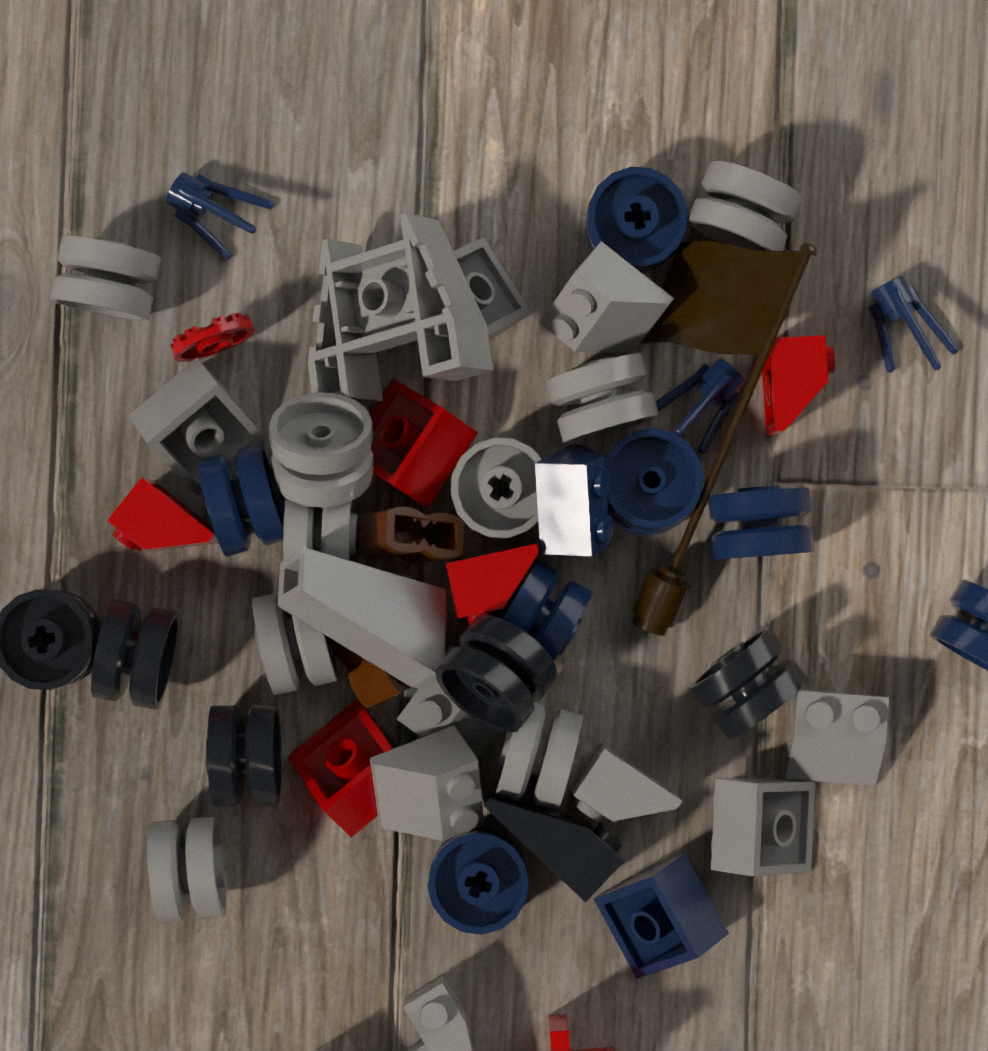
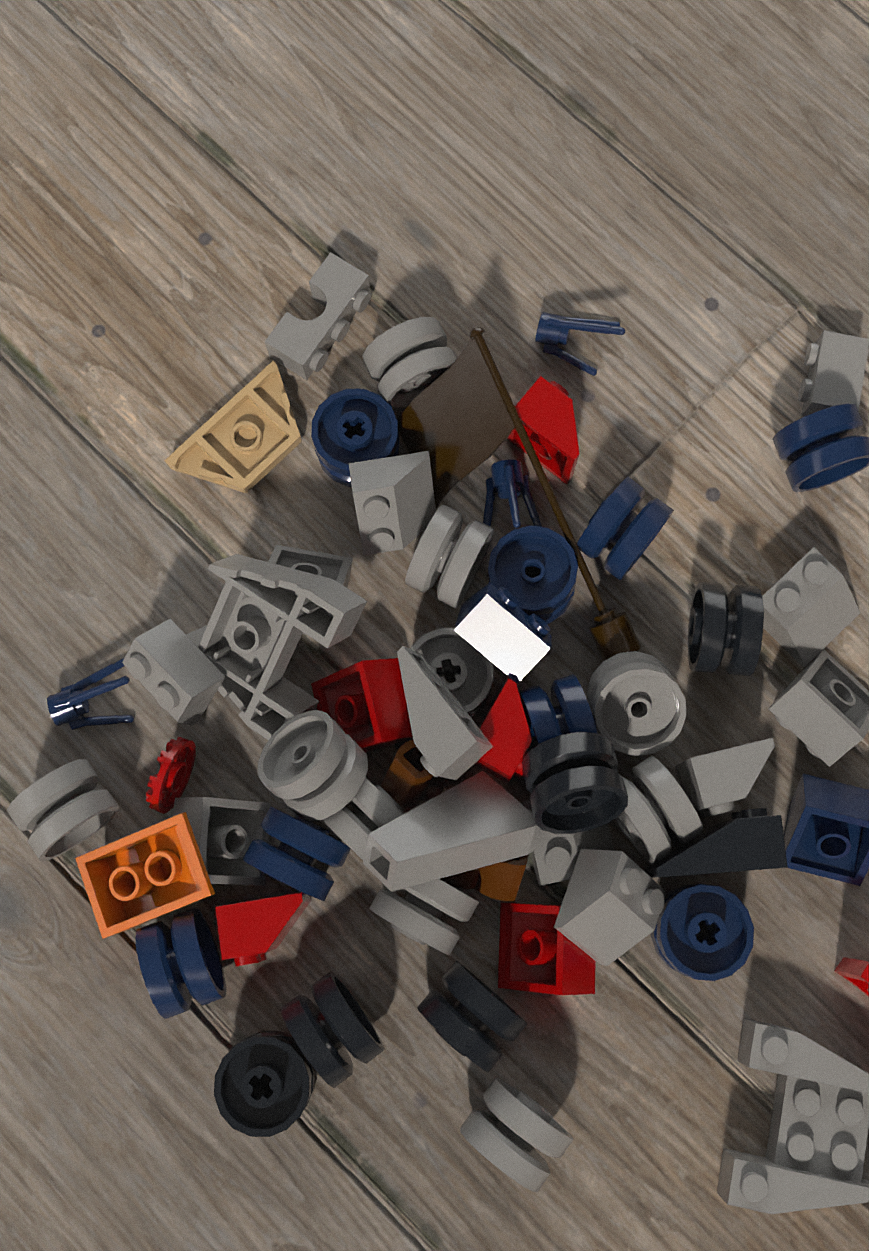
camera: 50 degrees left, 10 degrees down
(75, 487) = (180, 963): none -> dark blue wheel
(114, 396) = (144, 875): none -> orange slope
(295, 261) = (174, 671): none -> light grey slope
(448, 519) = (438, 721): none -> light grey slope
(551, 120) = (243, 437): none -> tan wing
(616, 664) = (636, 703): none -> light grey wheel
(681, 95) = (305, 343): none -> light grey arch

